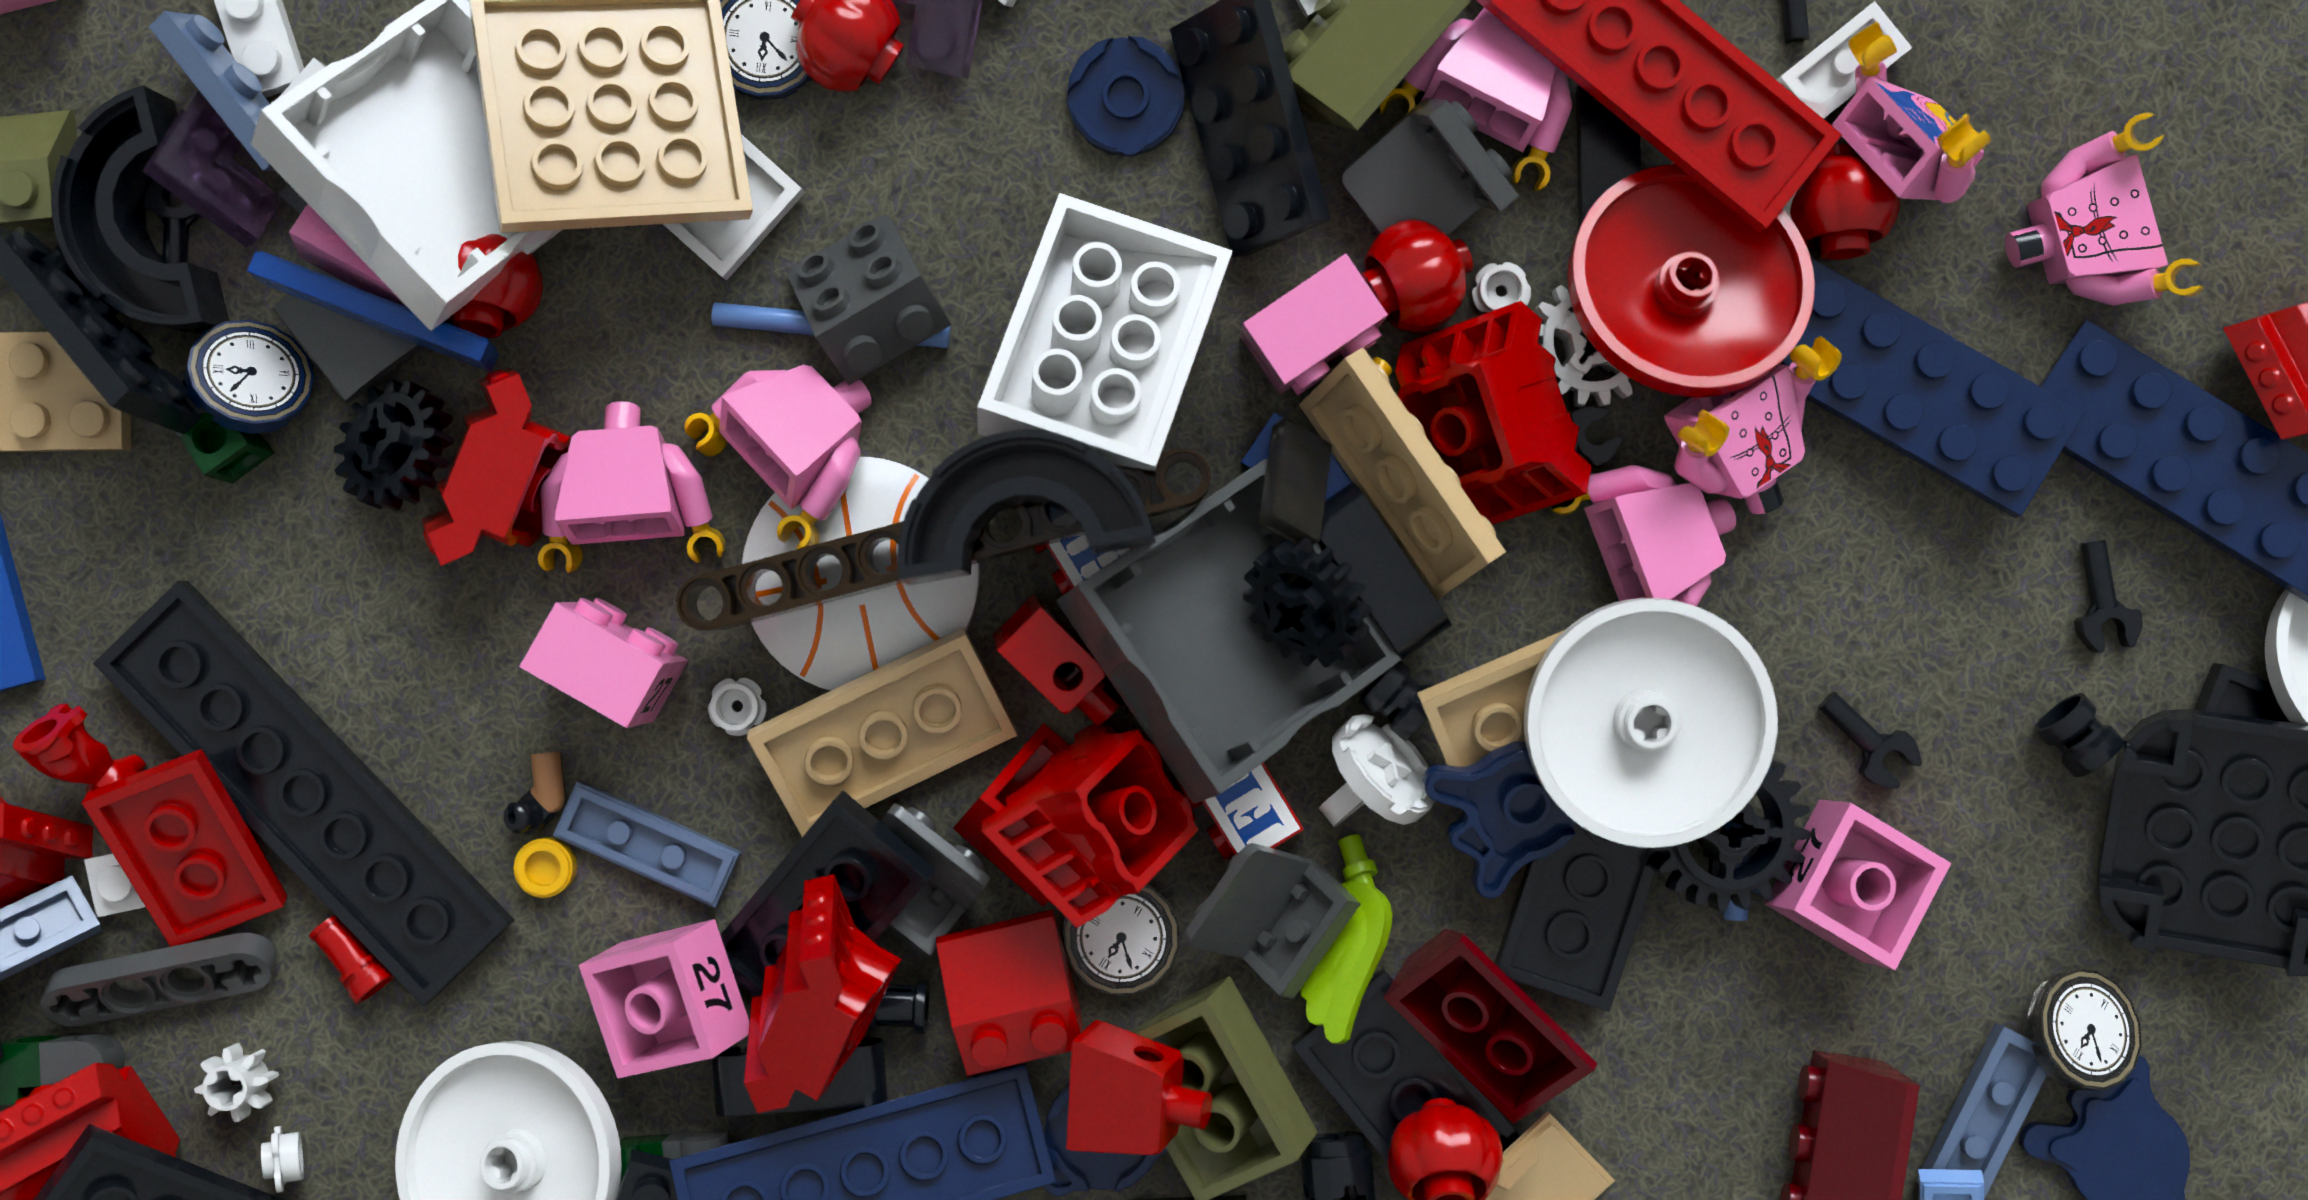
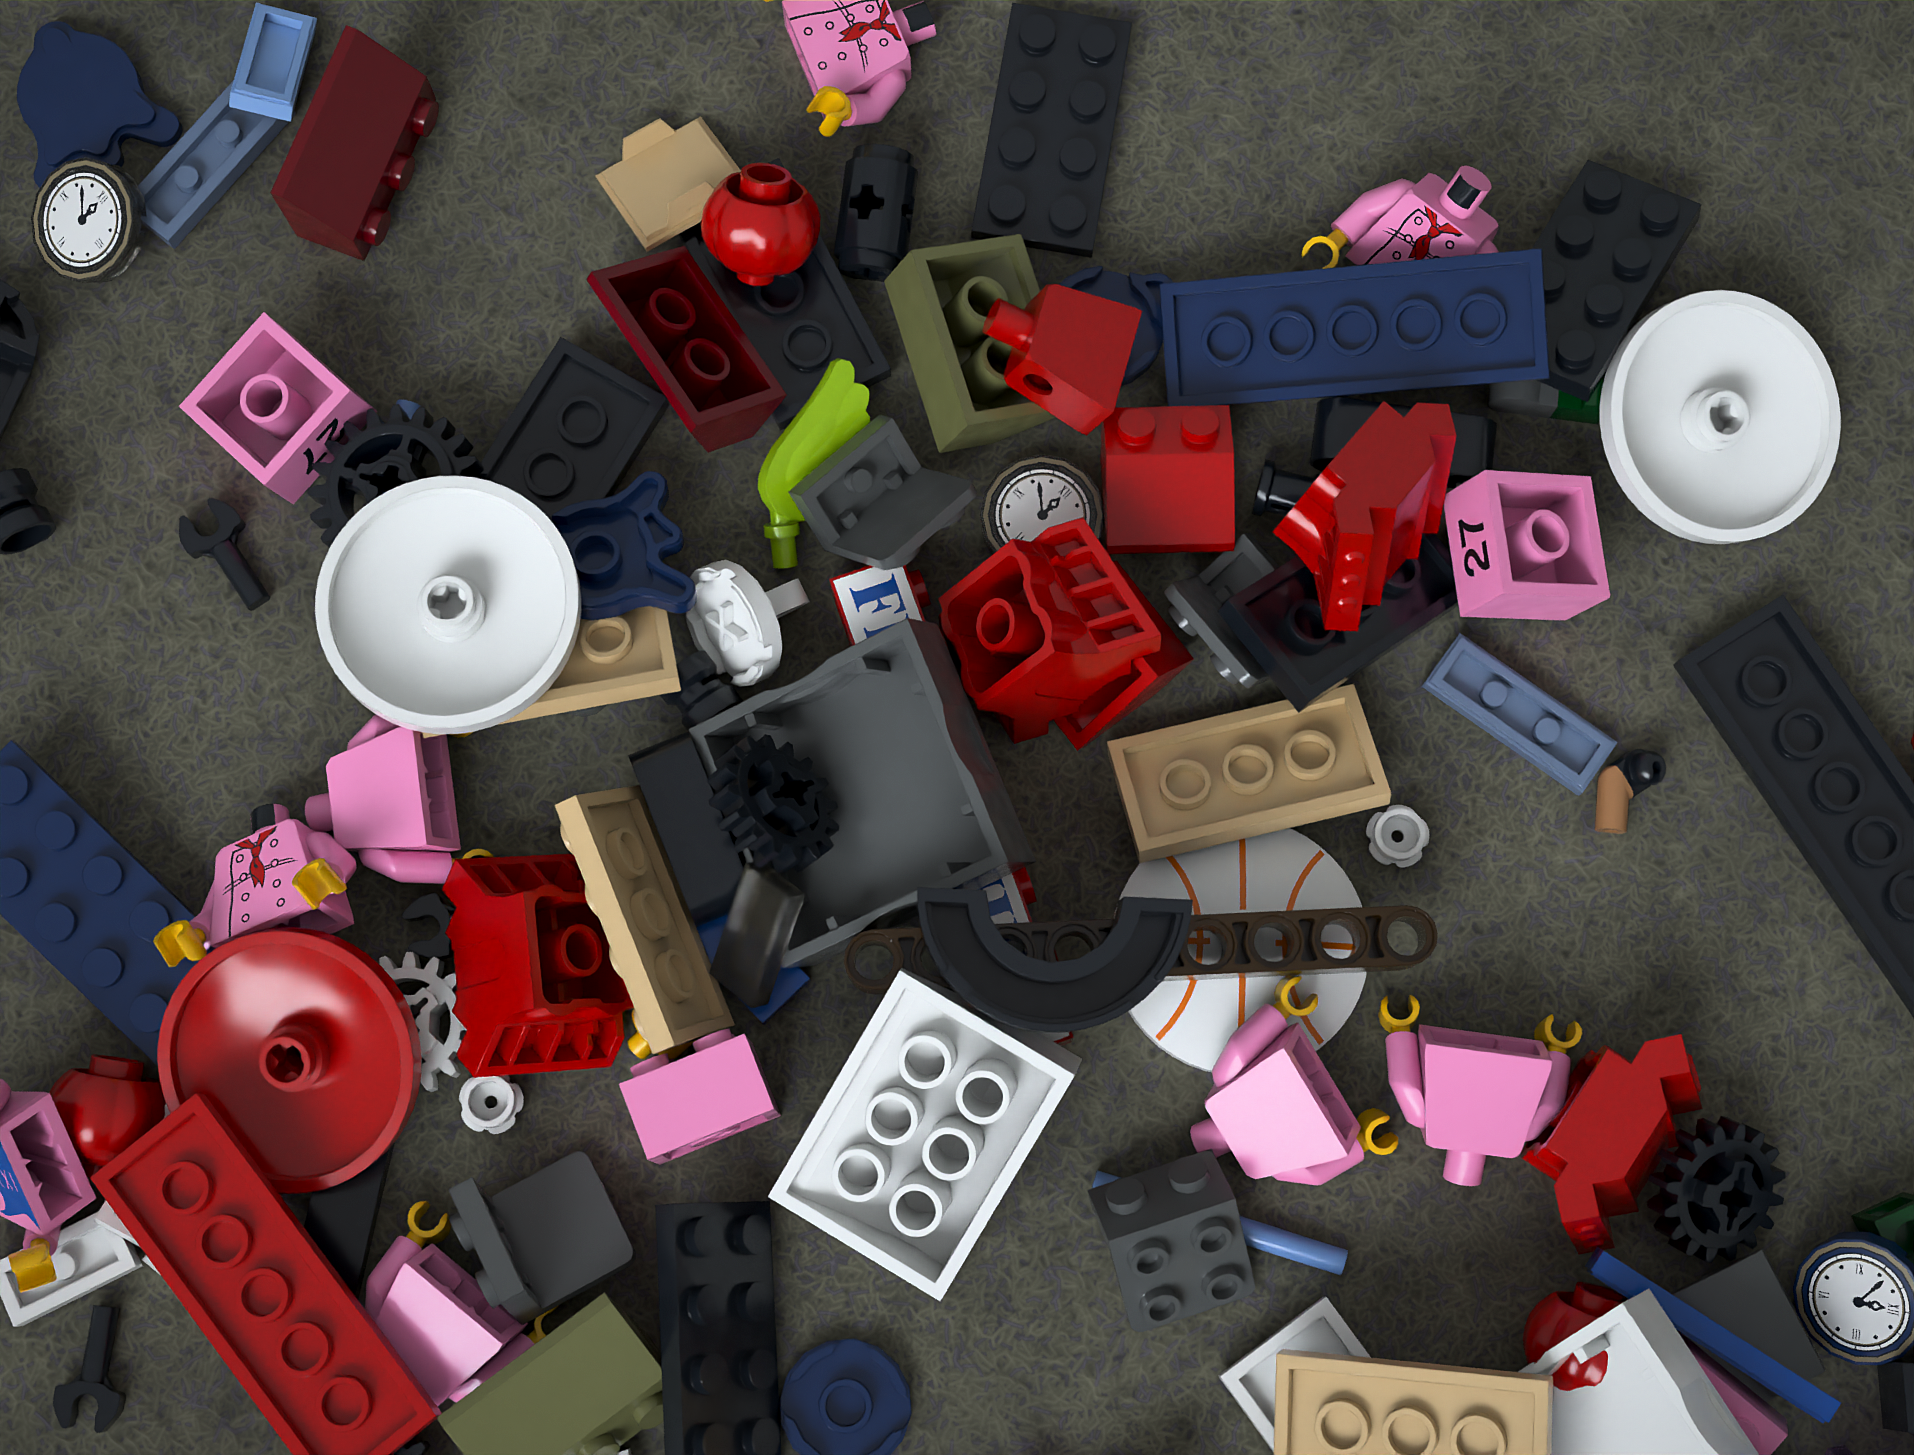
camera: 170 degrees left, 10 degrees down
(359, 969) = (1848, 654): red pin -> none
(545, 867) = (1631, 712): yellow tile -> none
(605, 662) = (1526, 905): bright pink brick -> none
(1040, 642) = (1053, 809): red torso -> none
(1417, 274) = (577, 1135): red plant -> none

